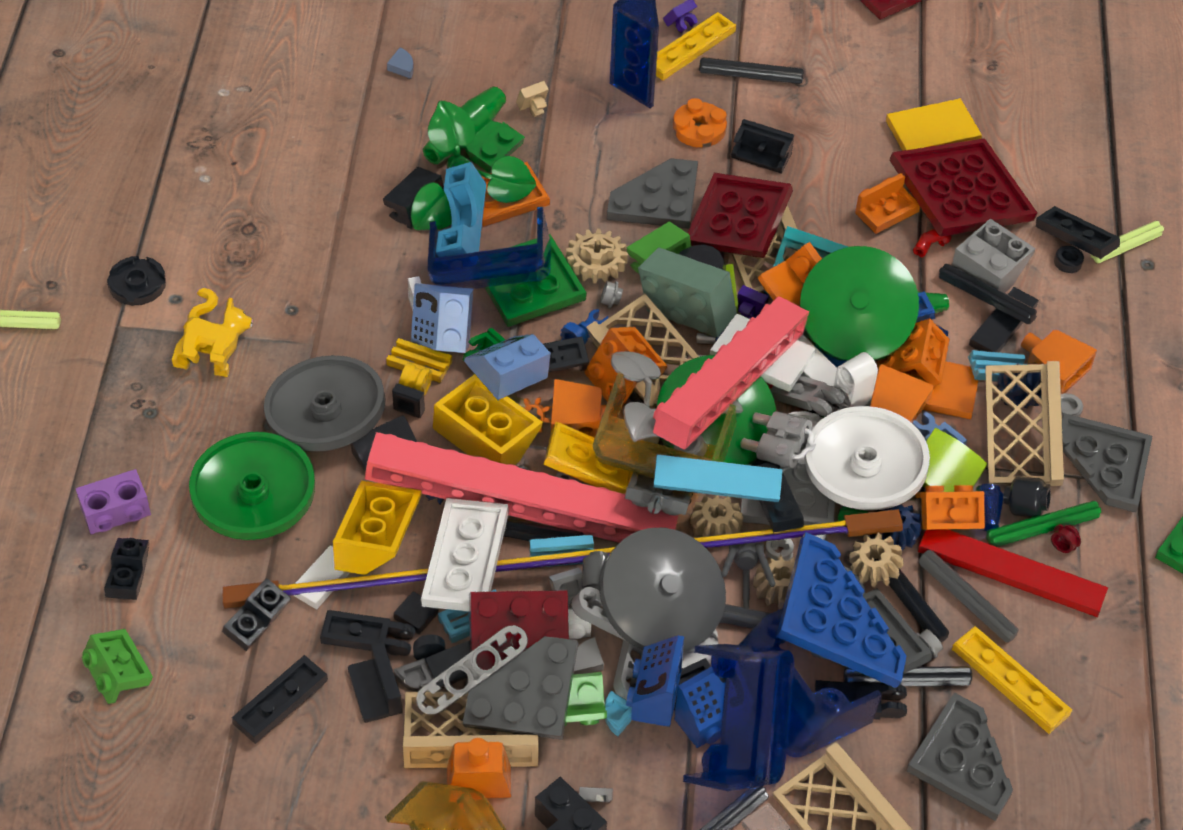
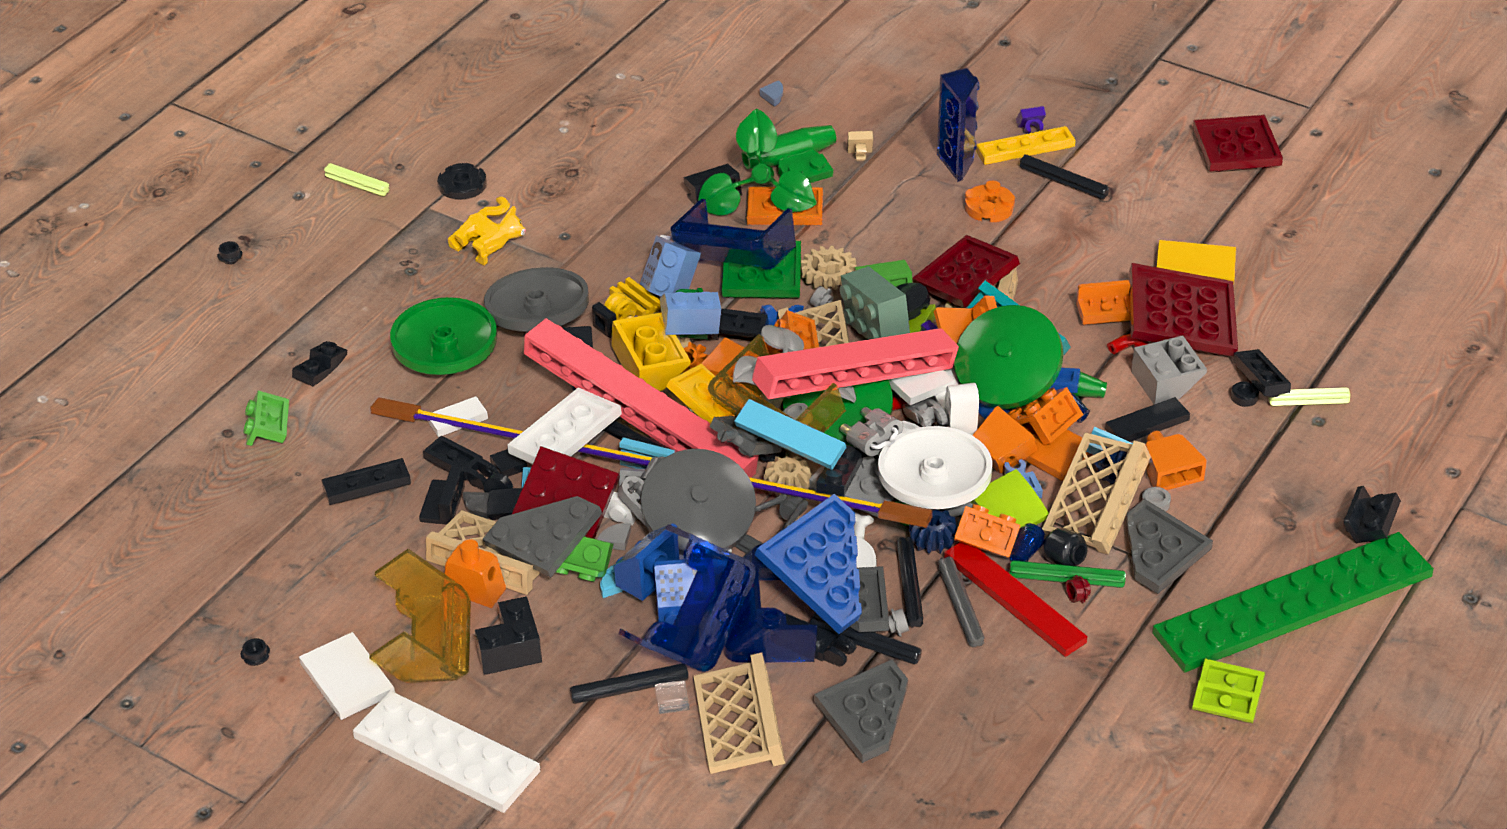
camera: 30 degrees right, 10 degrees down
(113, 501) = (338, 316): medium lavender brick -> none
(256, 614) = (393, 420): black slope -> none
(373, 526) = (506, 386): yellow slope -> none
(466, 198) = (747, 190): dark azure arch -> none
(470, 667) = (510, 499): light grey beam -> none
(596, 794) = (551, 624): light grey tile -> none
(657, 195) = (914, 242): dark grey plate -> none
(762, 146) = (1030, 232): black hinge -> none
(883, 550) = (893, 543): tan gear -> none
(988, 294) = (1144, 393): black axle -> none
(1012, 679) = (953, 673): yellow tile -> none

